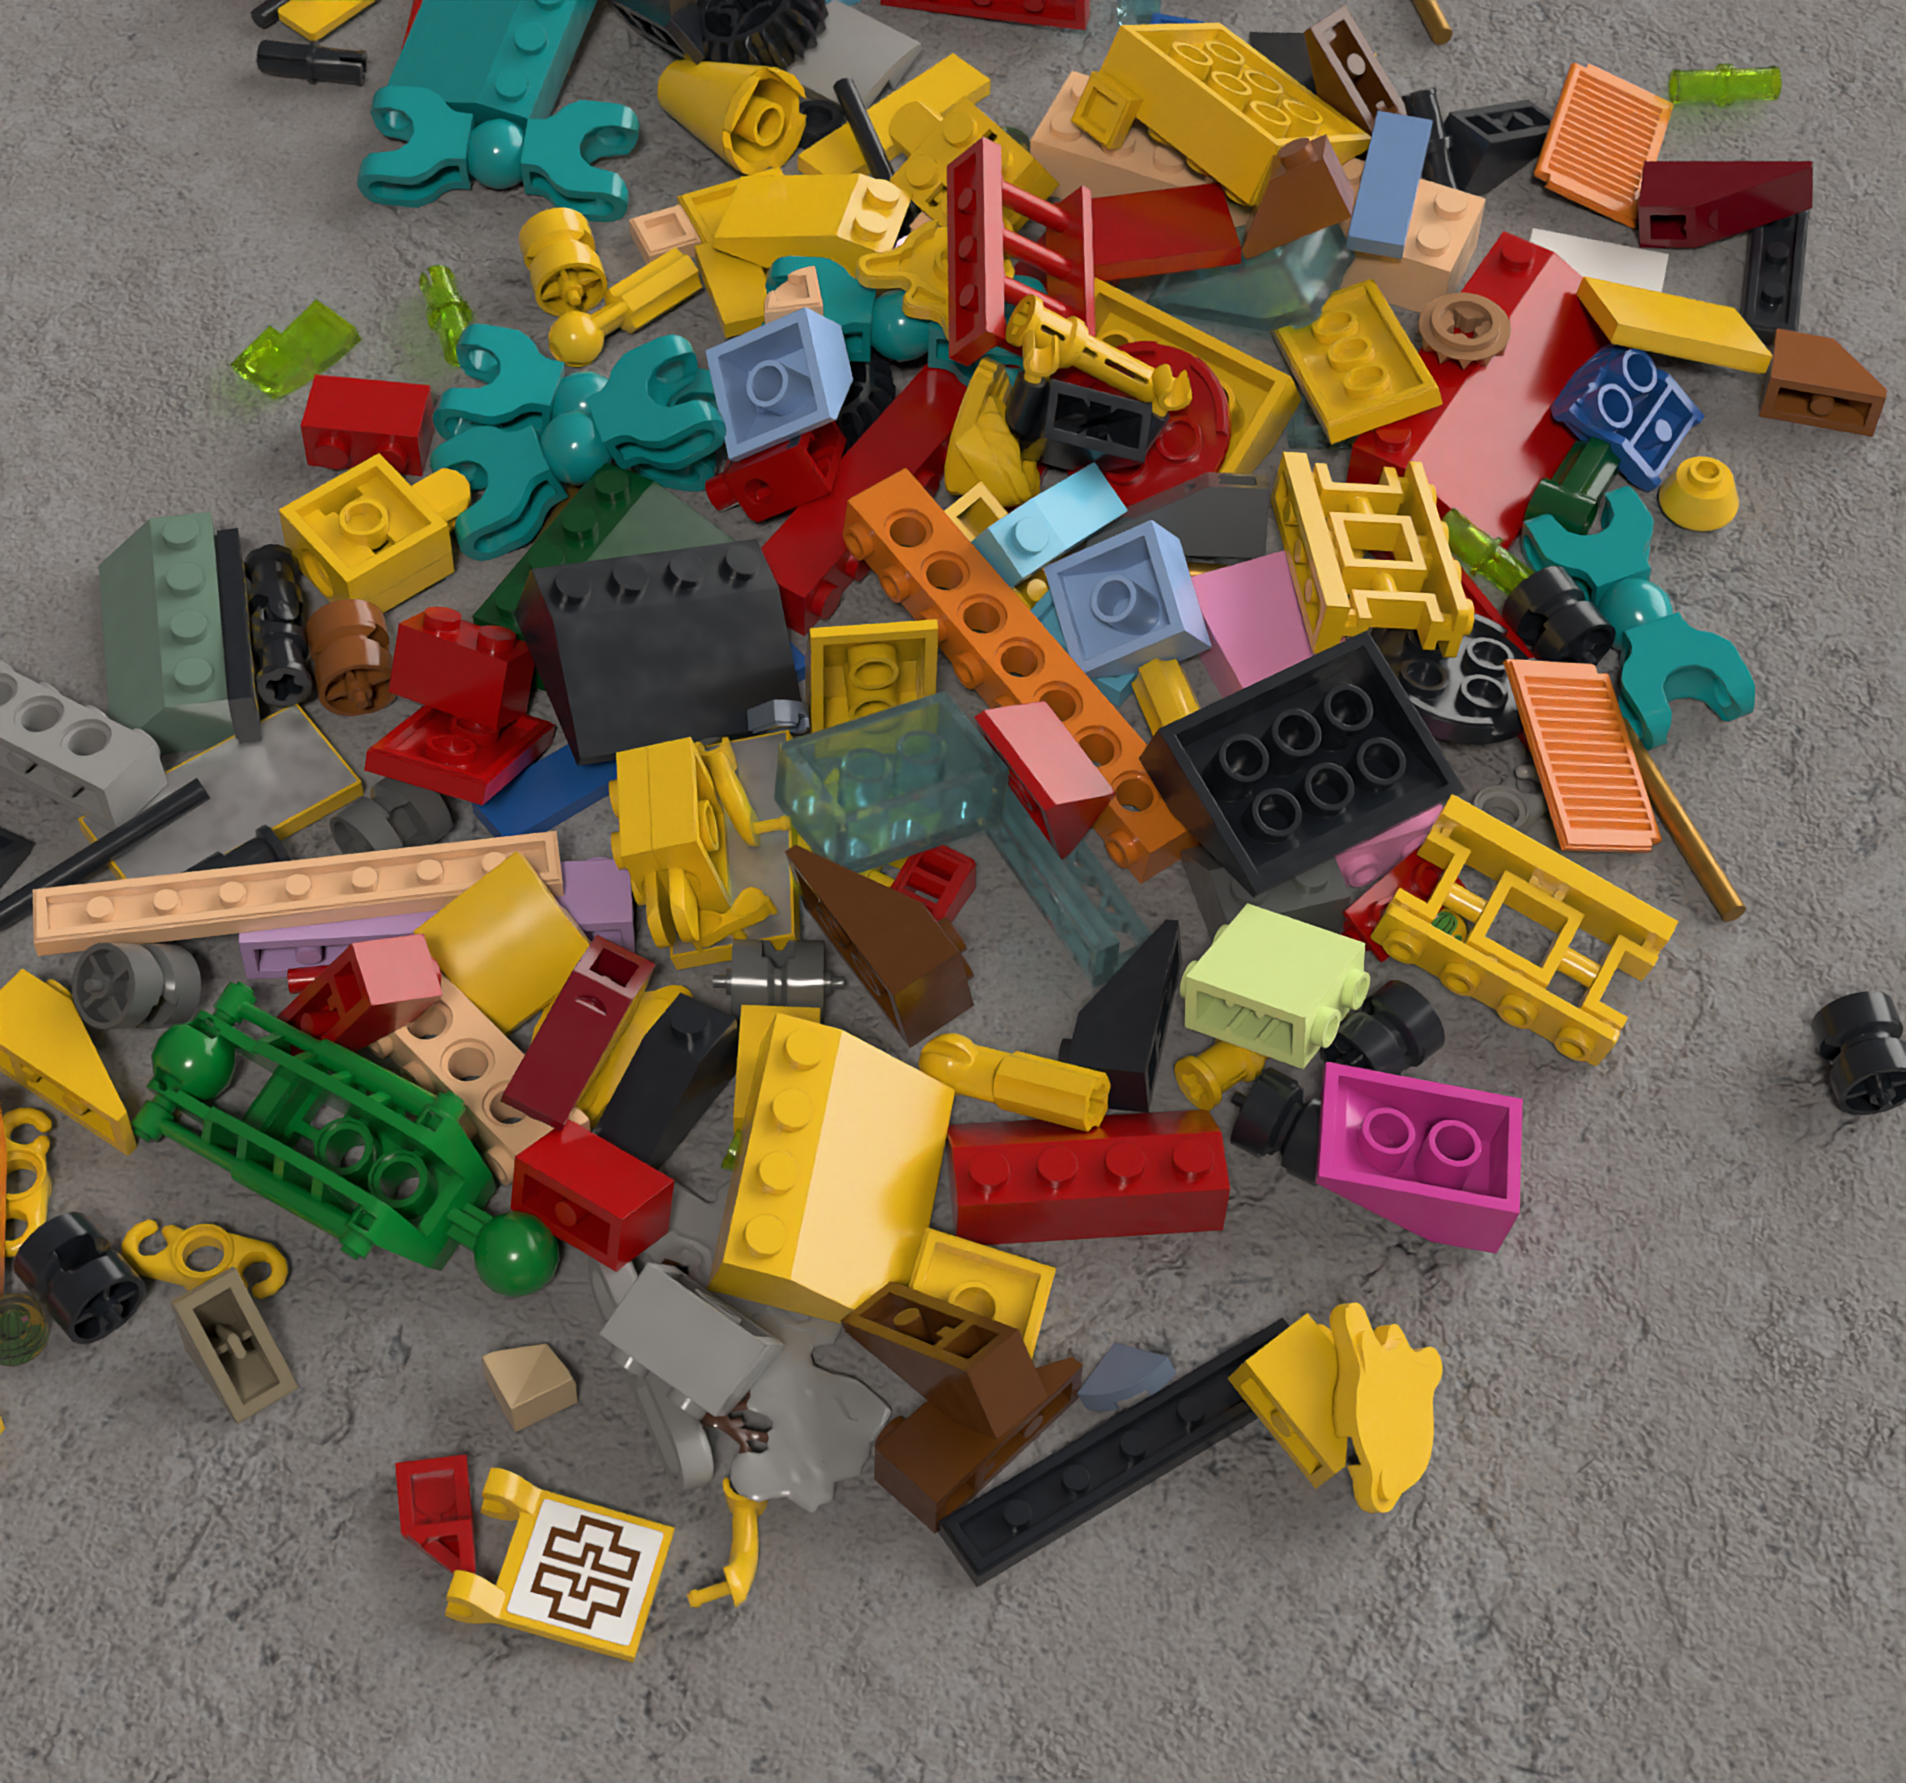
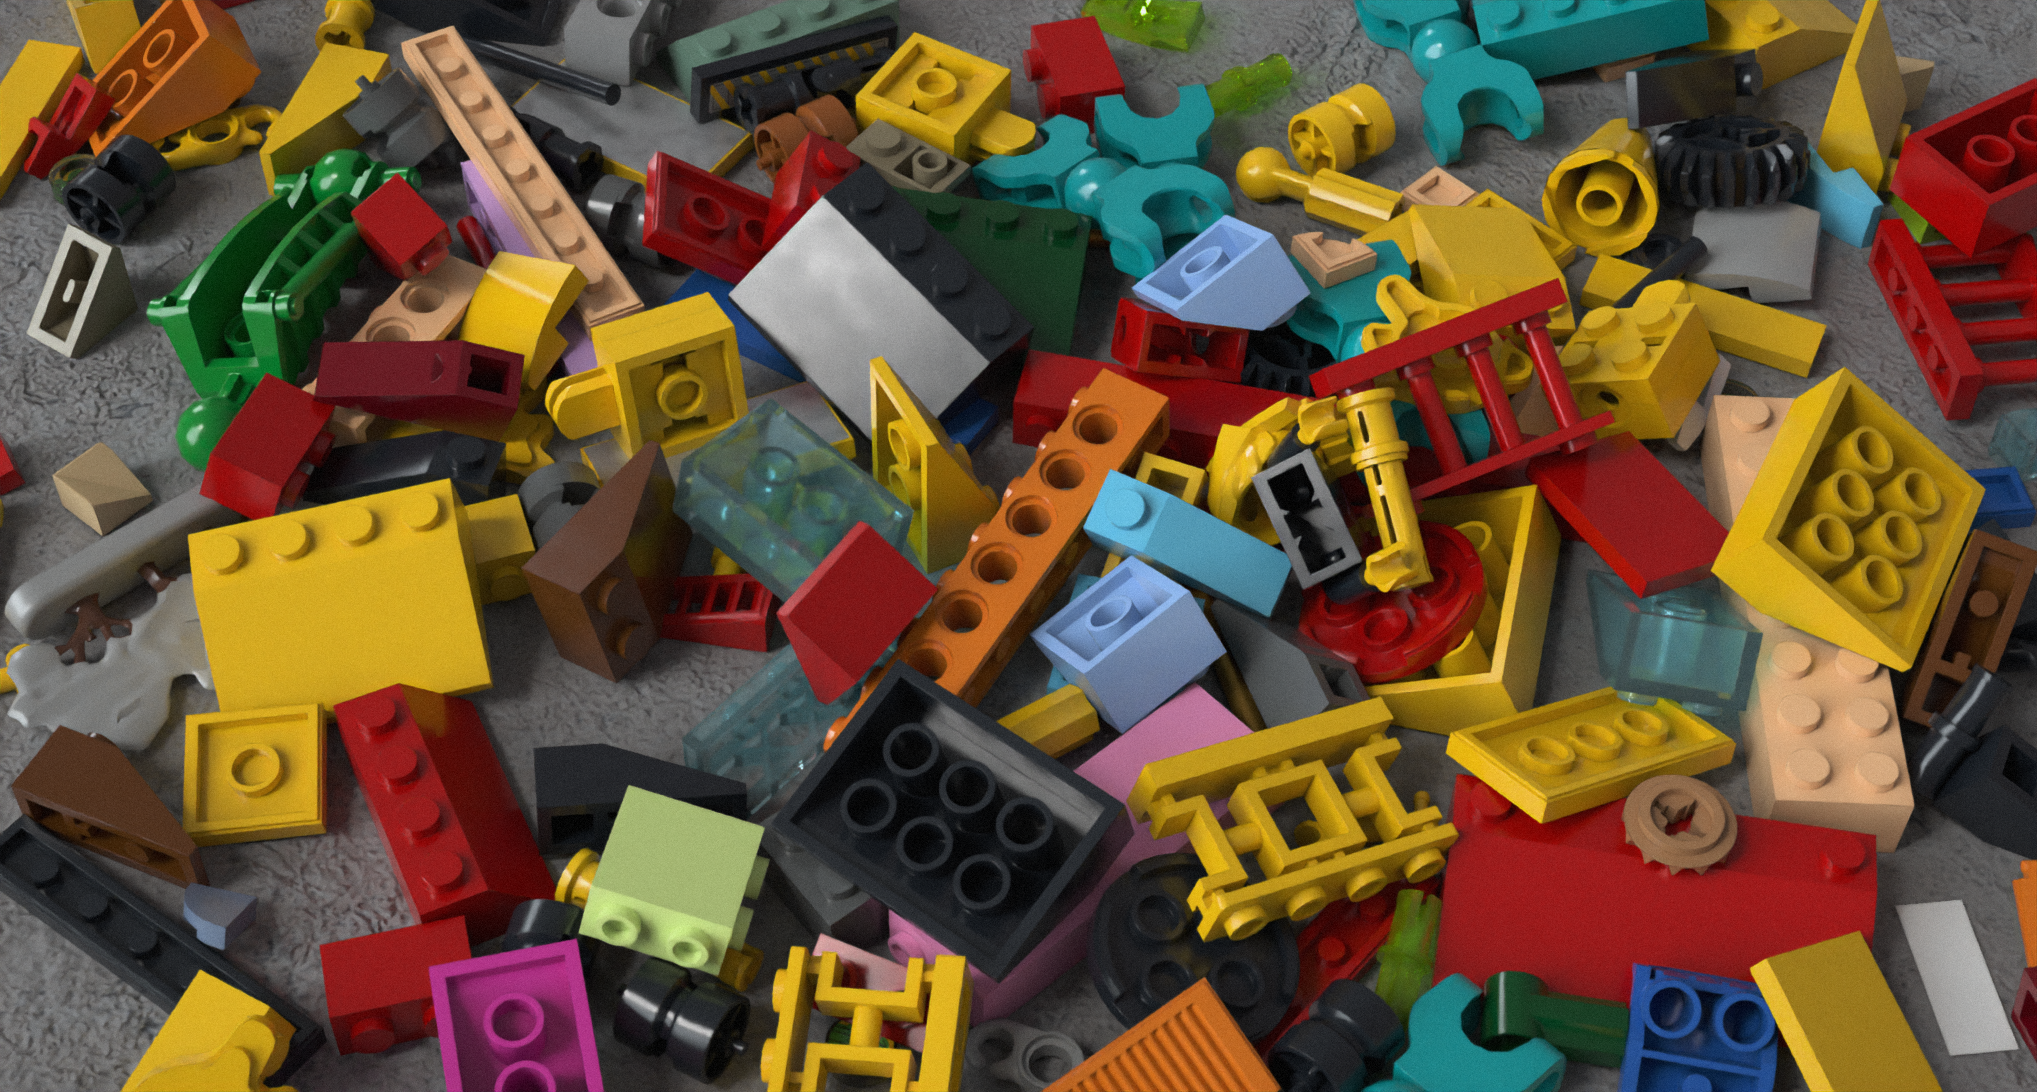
camera: 70 degrees right, 5 degrees down
(171, 1262) = (165, 245): yellow piece -> none
(451, 578) = (908, 160): none -> dark tan slope
(689, 1341) = (123, 553): light grey slope -> none
(721, 767) = (791, 394): yellow piece -> none
(747, 909) = (606, 456): yellow piece -> none
(779, 716) = (856, 419): sand blue tile -> none
(950, 1356) = (140, 737): reddish brown slope -> none
(1018, 1081) = (512, 726): yellow piece -> none
(1106, 110) = (1765, 420): yellow tile -> none
(1267, 1242) = (382, 983): none -> red brick
(1298, 196) = (1725, 590): dark orange slope -> none
(1389, 185) = (1845, 694): medium blue tile -> none

